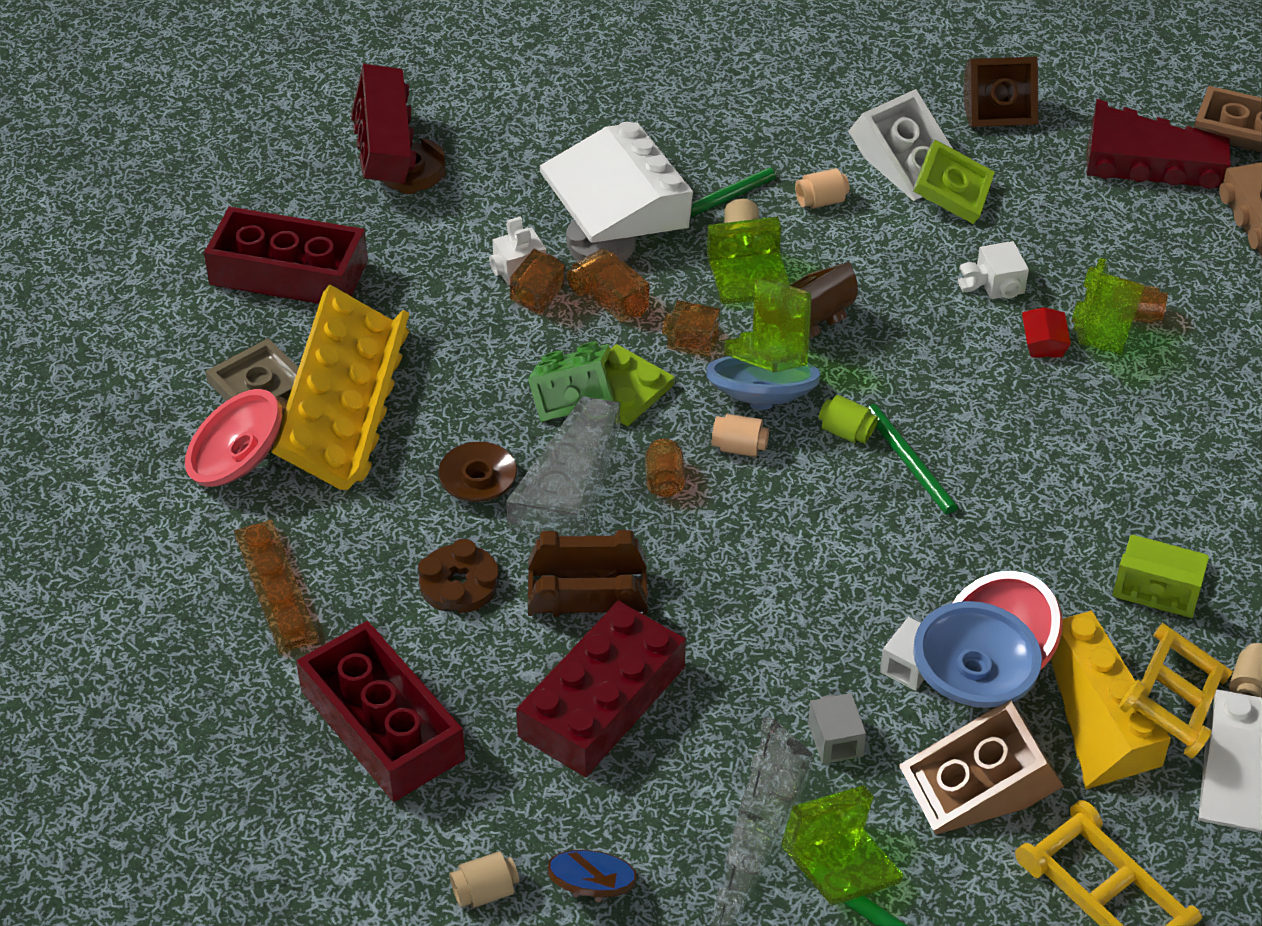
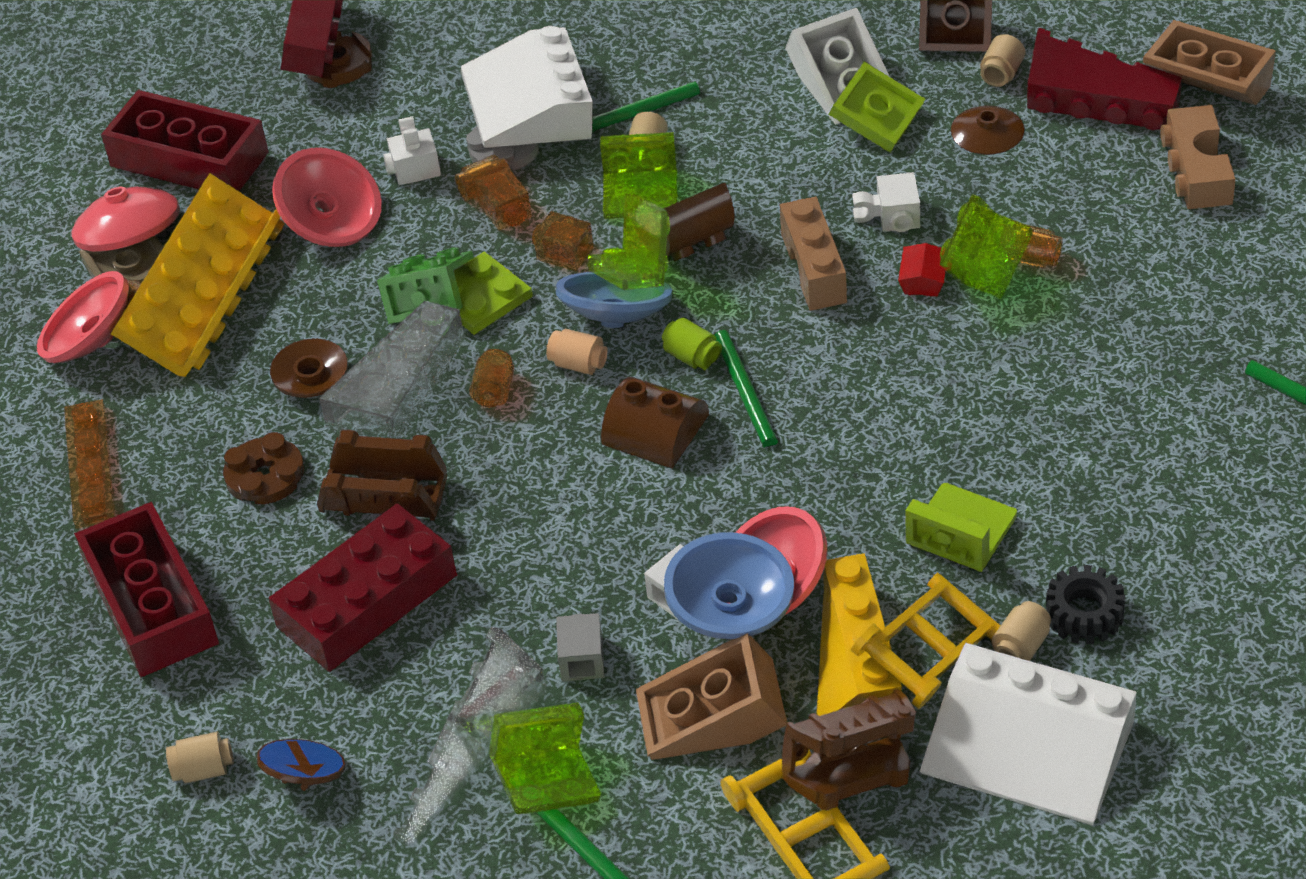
camera: 15 degrees right, 0 degrees up
(244, 336) = (124, 218): none -> coral dish
(448, 301) = (334, 184): none -> coral dish
(537, 281) = (421, 183): clear orange brick -> none
(822, 188) = (740, 106): light nougat brick -> none
(834, 498) = (651, 421): none -> reddish brown brick
(952, 337) = (816, 254): none -> medium nougat arch
(1053, 131) = (1002, 60): none -> tan brick
(1056, 197) = (987, 130): none -> reddish brown dish
(1140, 805) = (841, 757): none -> reddish brown piece

